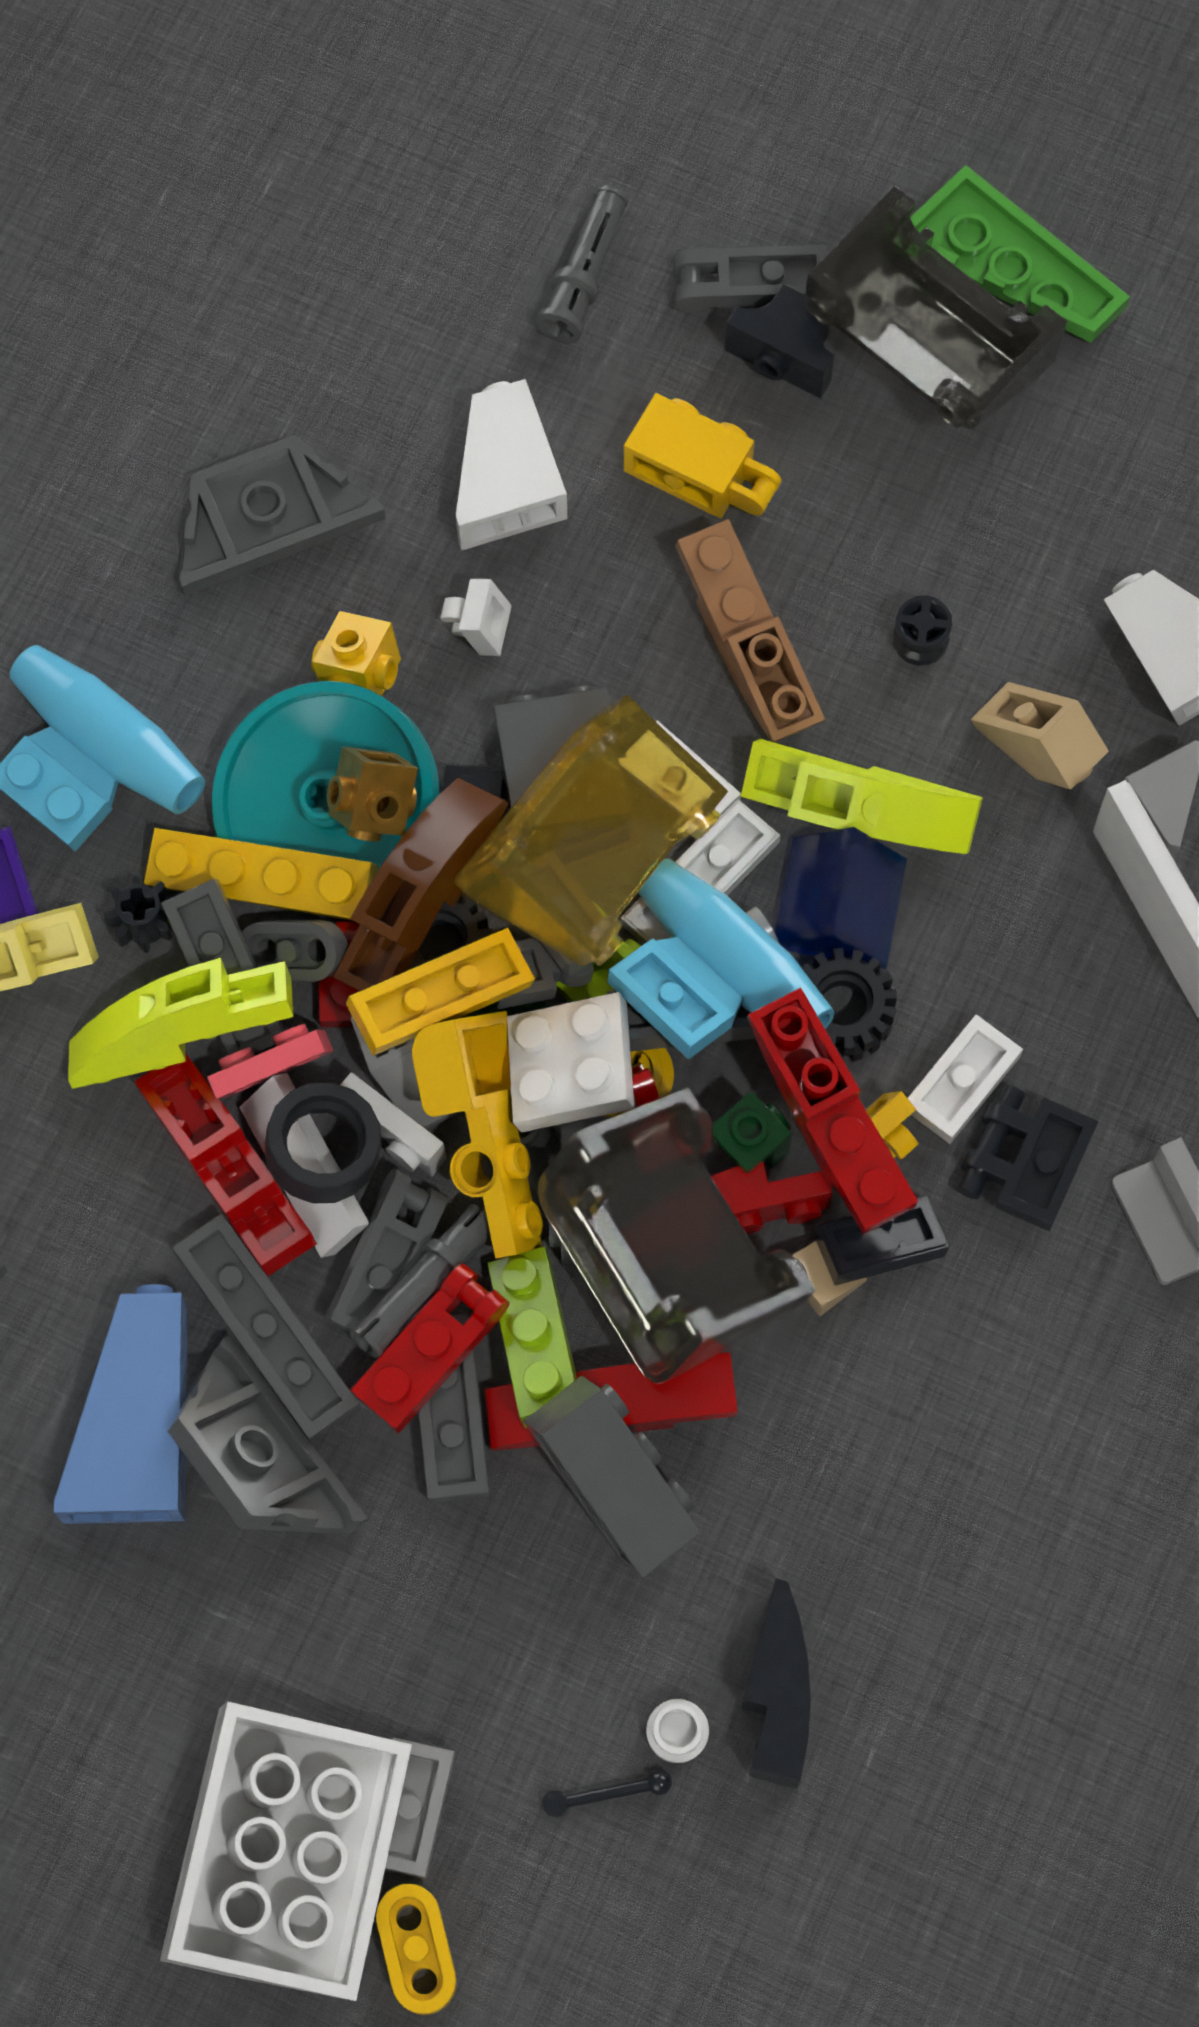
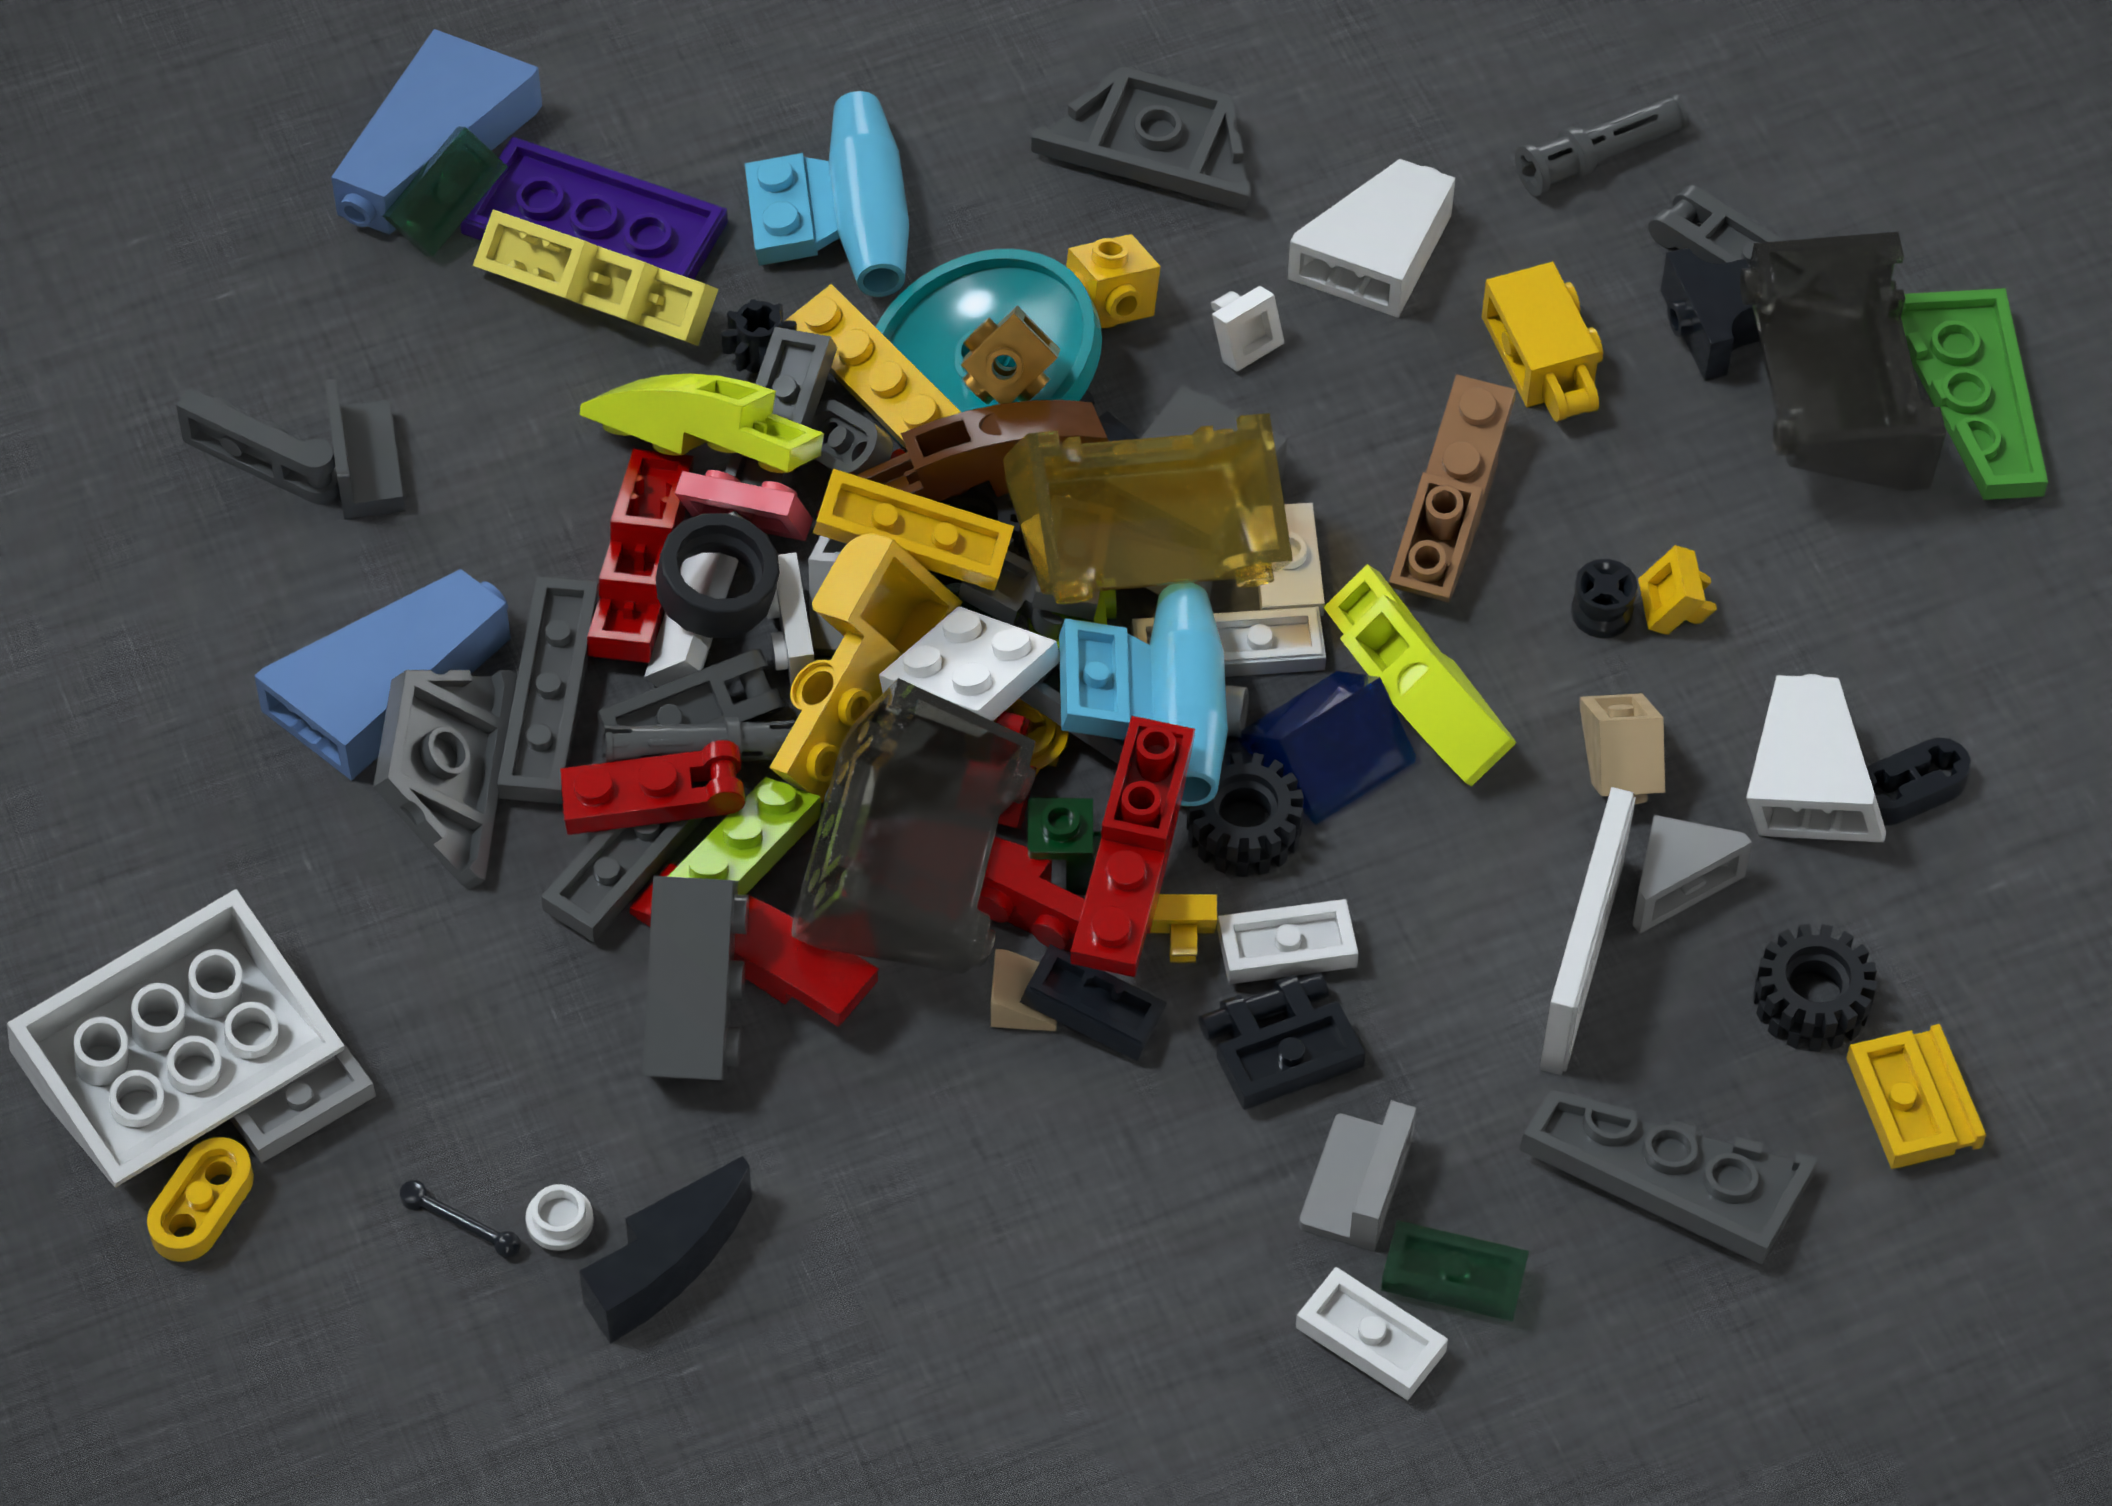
camera: 40 degrees right, 15 degrees down
(964, 586) = (1675, 591): none -> yellow tile

